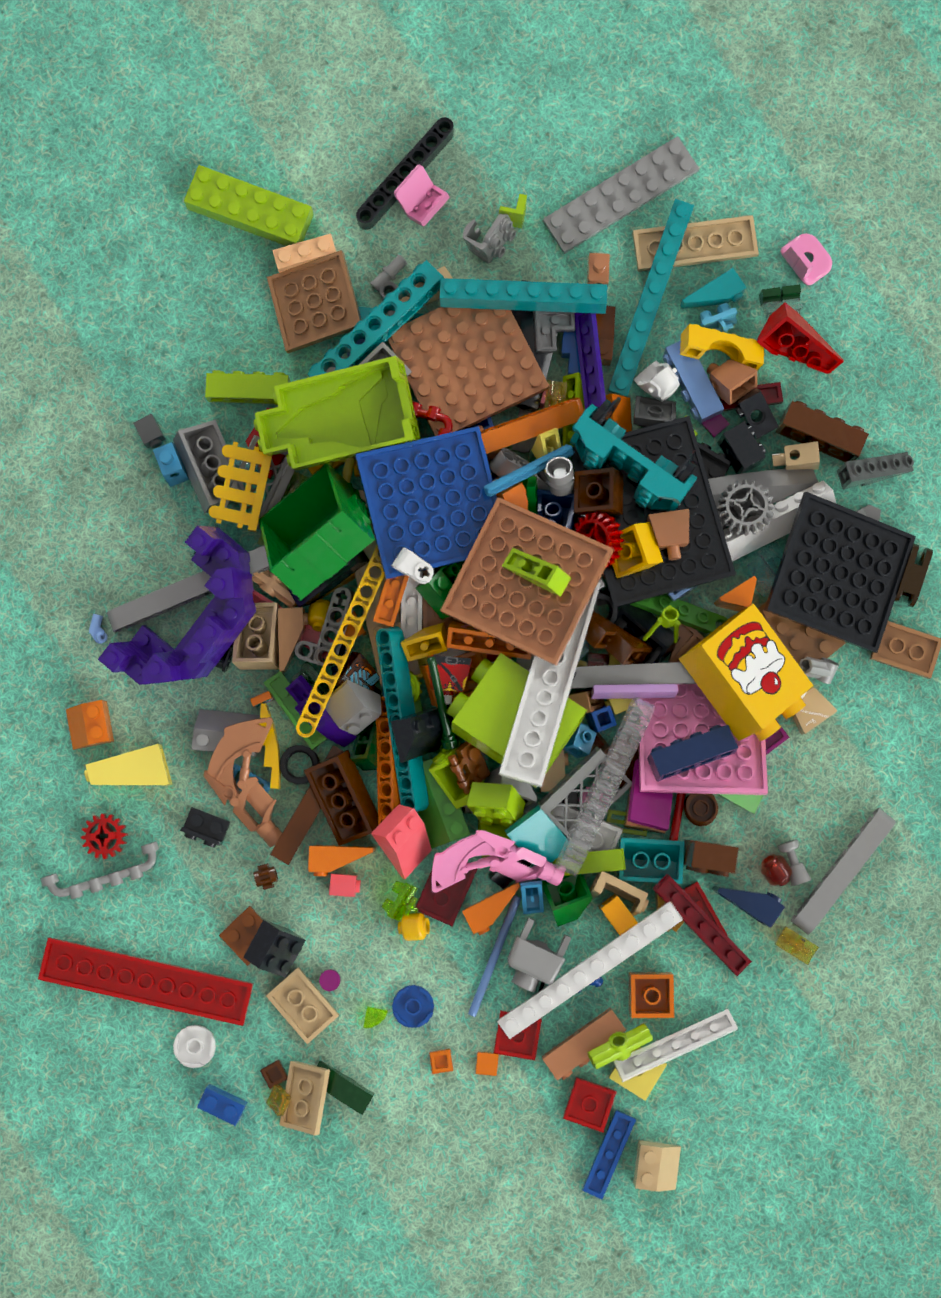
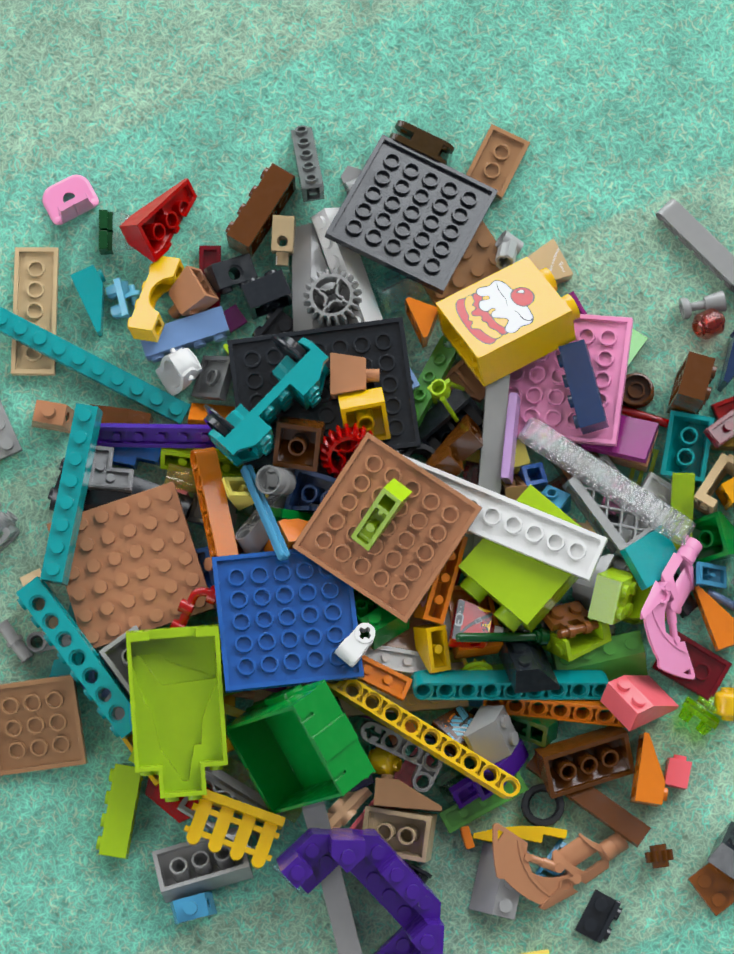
camera: 85 degrees left, 5 degrees down
(149, 431) = (153, 928): dark grey brick -> none

